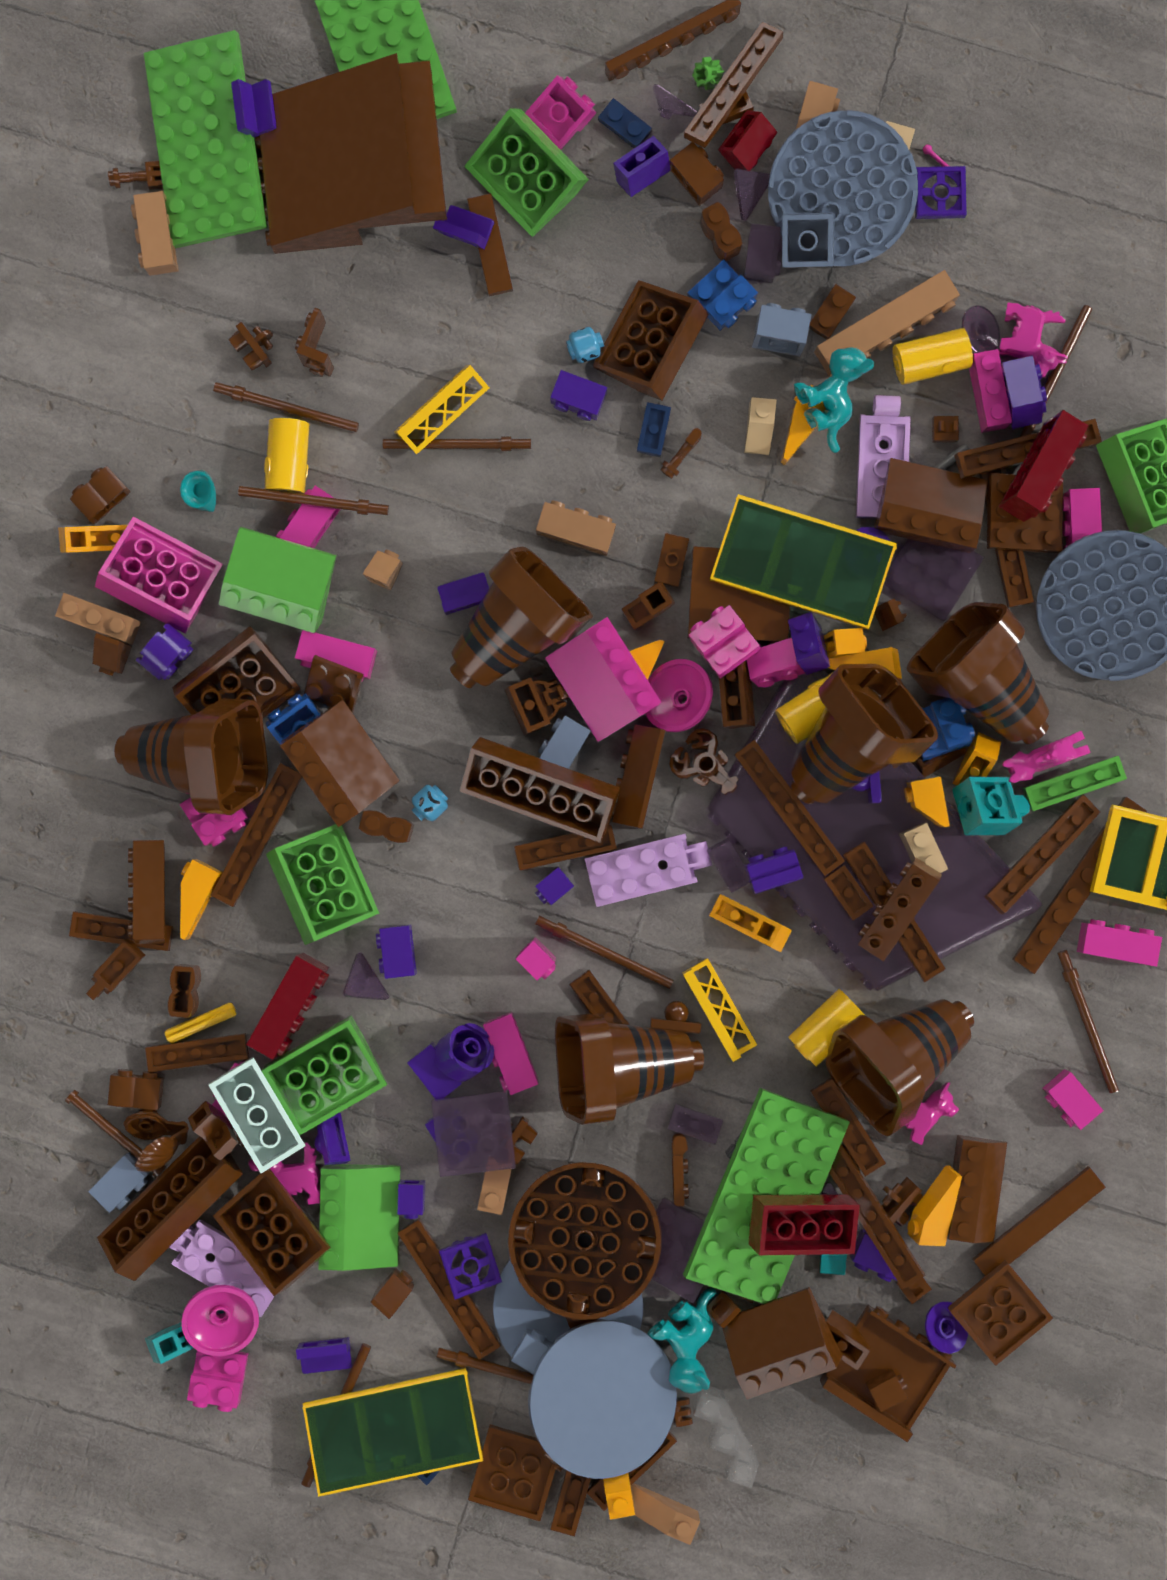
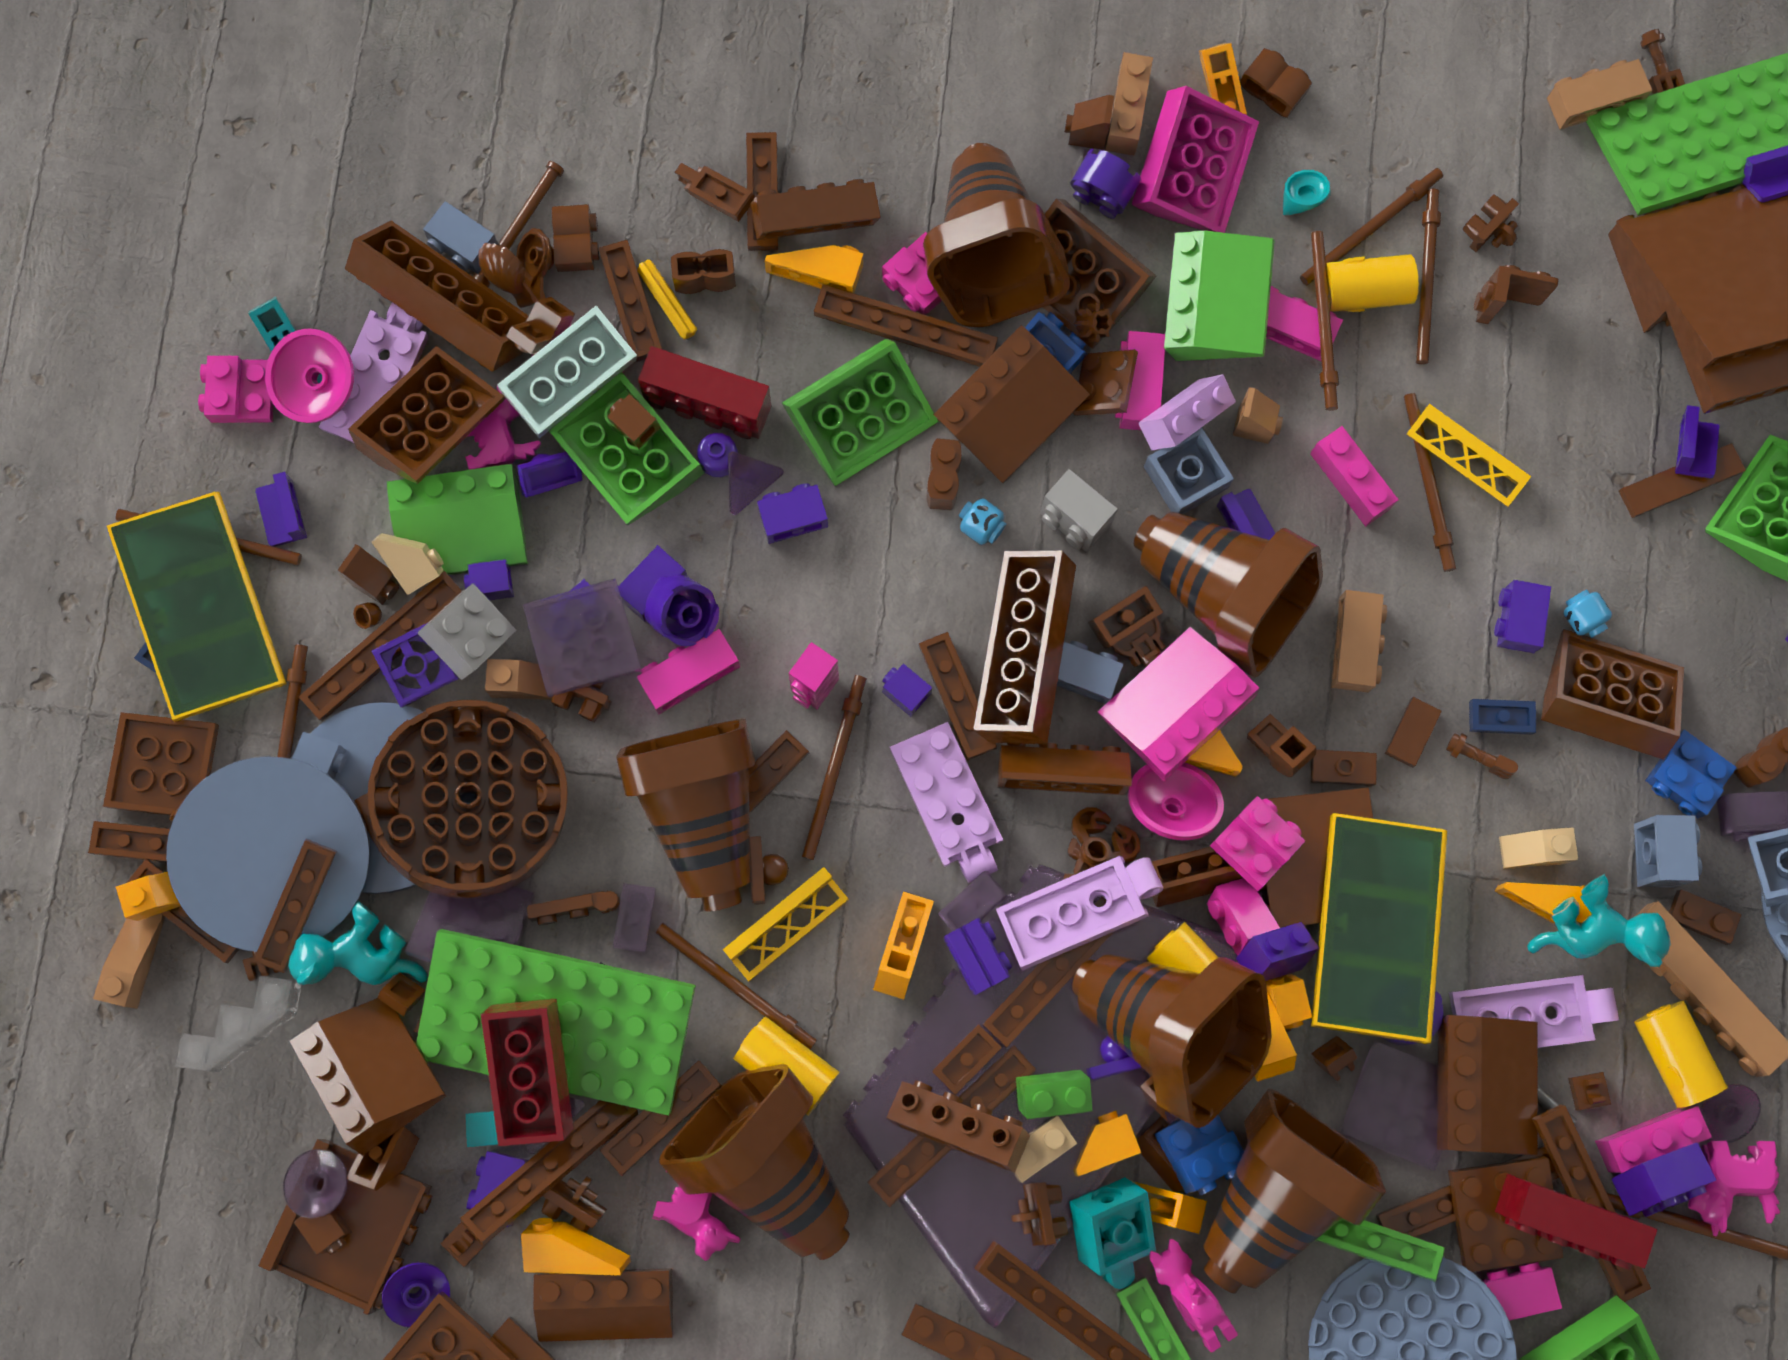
camera: 80 degrees right, 10 degrees down
(213, 401) = (1414, 192): none -> reddish brown bar
(283, 685) = (1093, 323): none -> reddish brown gear
(306, 1068) = (633, 420): none -> reddish brown brick
(337, 1005) = (714, 452): none -> dark purple head
(371, 625) = (1187, 412): none -> lavender brick
(386, 1260) = (409, 561): none -> tan slope
(419, 633) = (1188, 472): none -> sand blue brick
(422, 1297) = (367, 615): none -> reddish brown hinge
(436, 728) = (1077, 511): none -> light grey brick
(443, 503) = (1353, 476): none -> dark pink brick
(452, 1222) = (467, 631): none -> light grey brick
(645, 1383) = (295, 905): none -> reddish brown tile
(653, 500) = (1413, 732): none -> reddish brown tile
(755, 798) = (1065, 912): none -> lavender hinge
(795, 1021) = (787, 1022): none -> reddish brown bar
(855, 1403) = (302, 1180): none -> clear purple dish
(886, 832) = (1054, 1094): none -> bright green brick
(970, 862) = (1036, 1213): none -> reddish brown hips
(1038, 602) = (1386, 1247): none -> bright green plate

